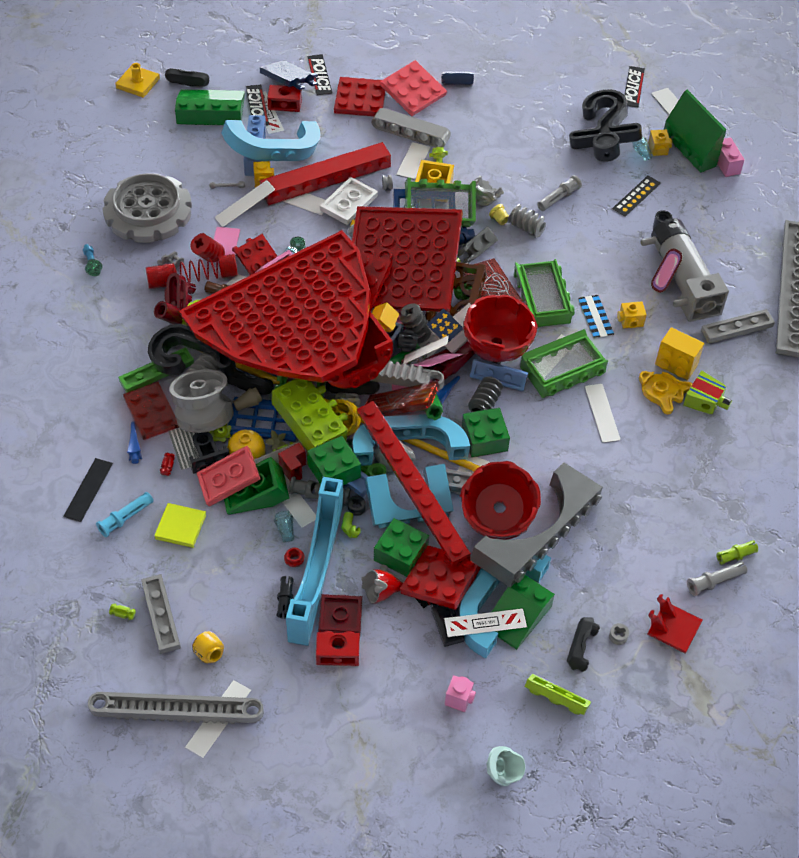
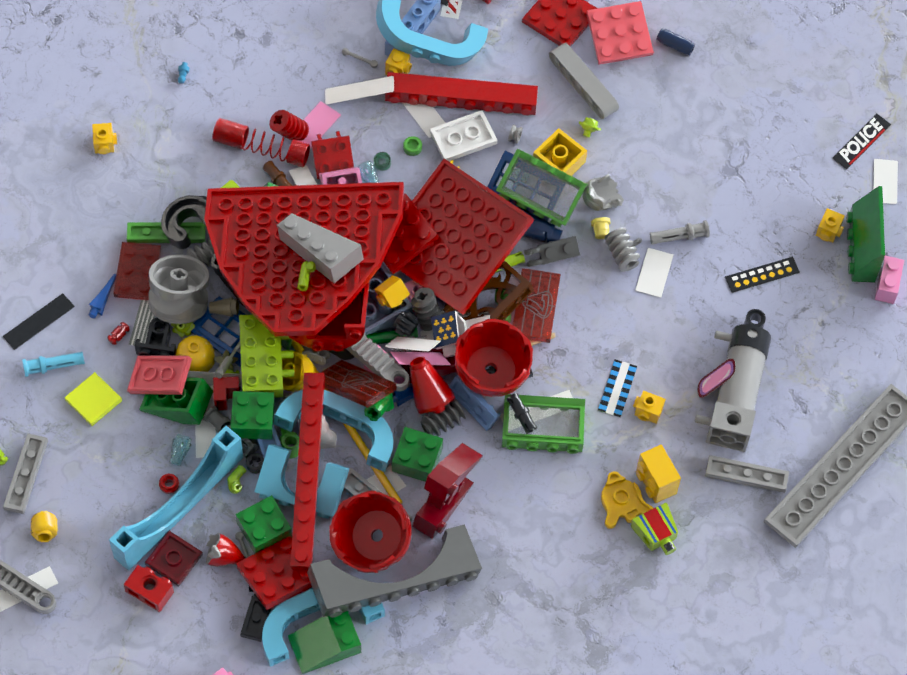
camera: 30 degrees right, 10 degrees up
(54, 325) = (104, 138): none -> yellow brick
(93, 267) = (176, 91): clear green bush -> none
(147, 207) = (262, 50): light grey piece -> none
(168, 258) = (247, 114): light grey piece -> none
(176, 298) = (226, 167): dark red piece -> none
(281, 434) = (226, 362): none -> light grey piece
(284, 596) = (140, 512): black pin -> none
(312, 298) = (329, 251): none -> light grey wedge
(313, 225) = (412, 146): none -> bright green tile
(315, 326) = (306, 268): none -> lime arm
(412, 160) = (563, 118): white sticker -> none
(462, 375) = (429, 388): none -> red cone
(485, 622) = (284, 636): white sticker -> none
(535, 429) = (446, 490): none -> dark red wedge
(544, 292) = (579, 338): window -> none
(546, 360) = (521, 413): none -> black pin
(560, 228) = (654, 272): none -> white sticker
(602, 413) = (546, 492): white sticker -> none
(608, 133) = (779, 189): black piece -> none
(643, 148) = (808, 222): clear light blue cone -> none

